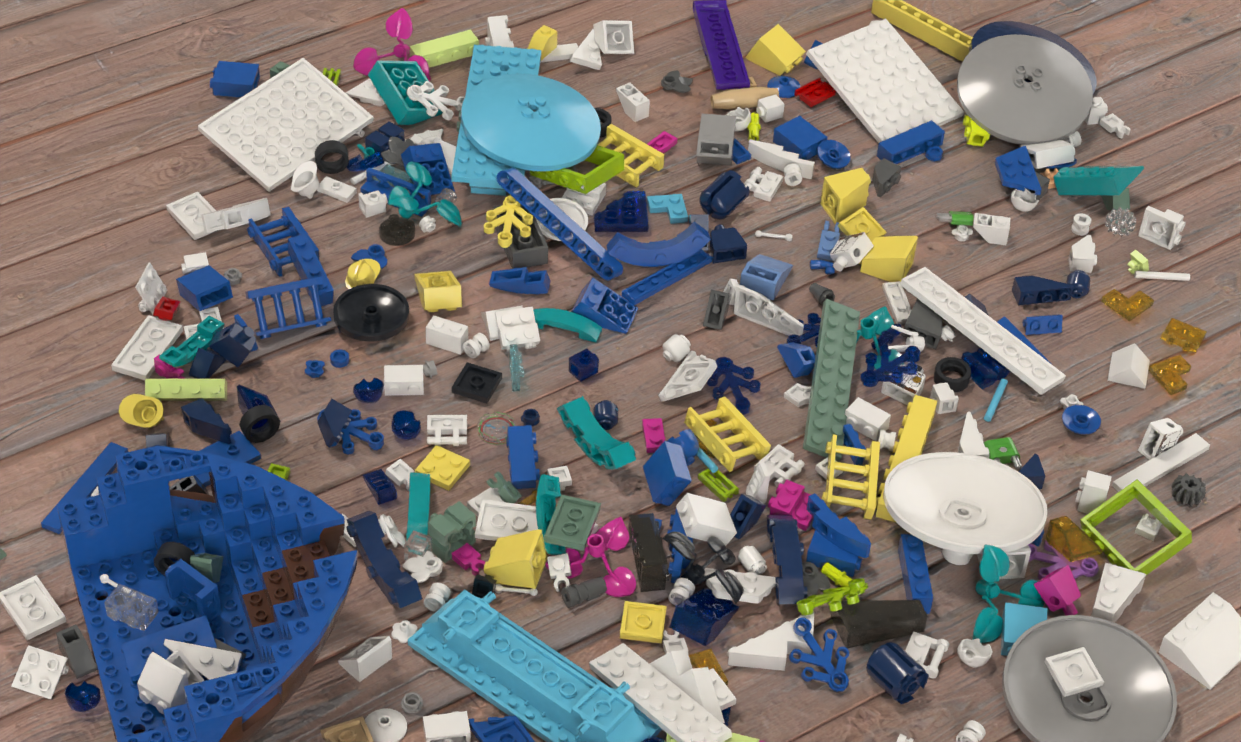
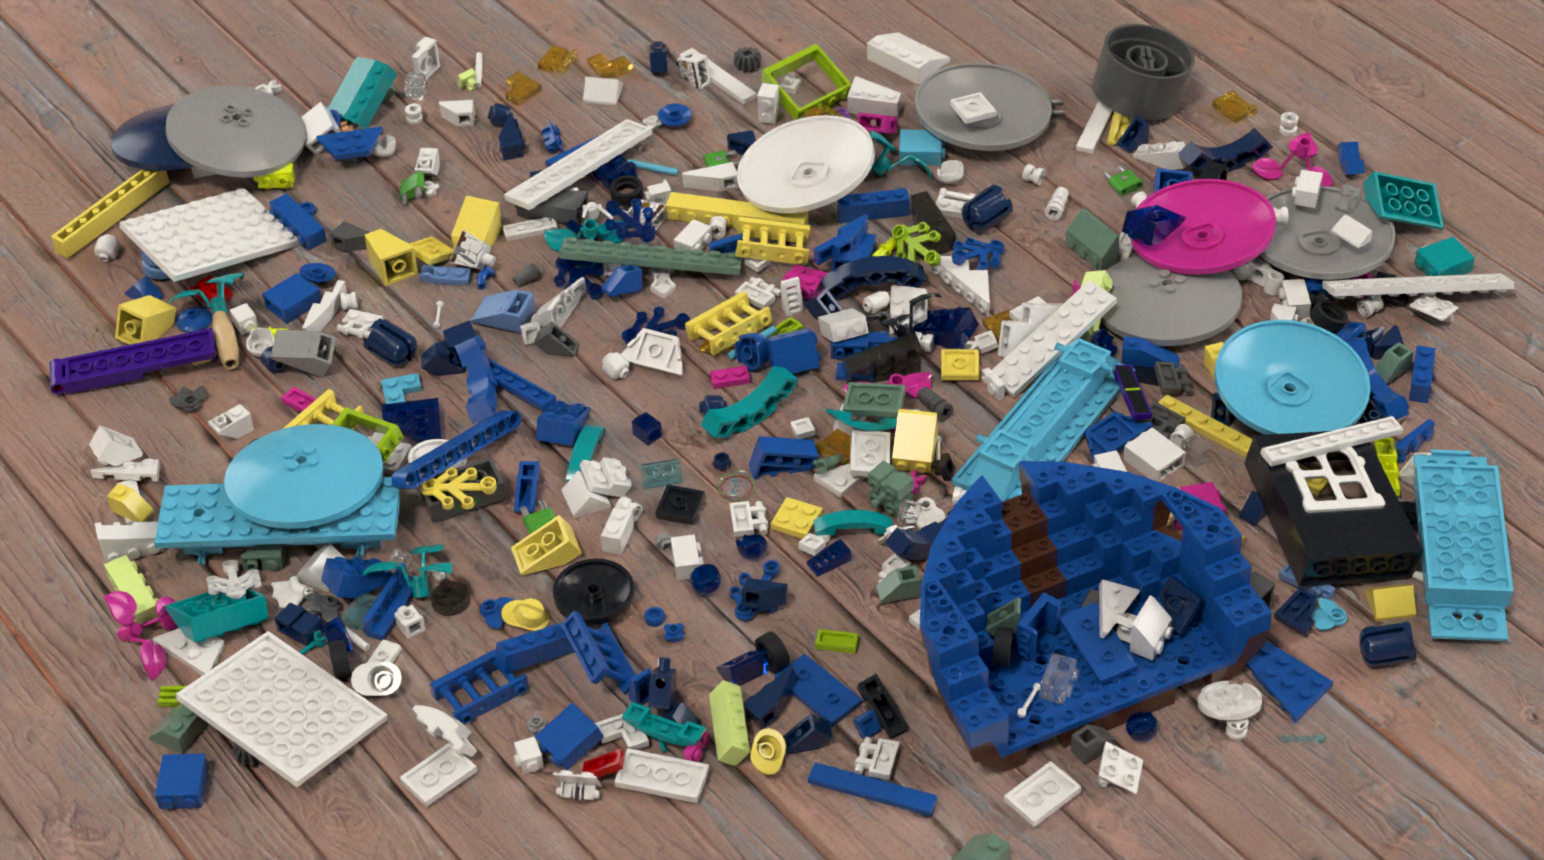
camera: 90 degrees left, 0 degrees up
(472, 287) = (537, 519): none -> bright green piece
(604, 644) = (995, 384): none -> white plate
(795, 71) = (217, 303): none -> teal plant
(1189, 413) = (658, 57): none -> dark blue slope

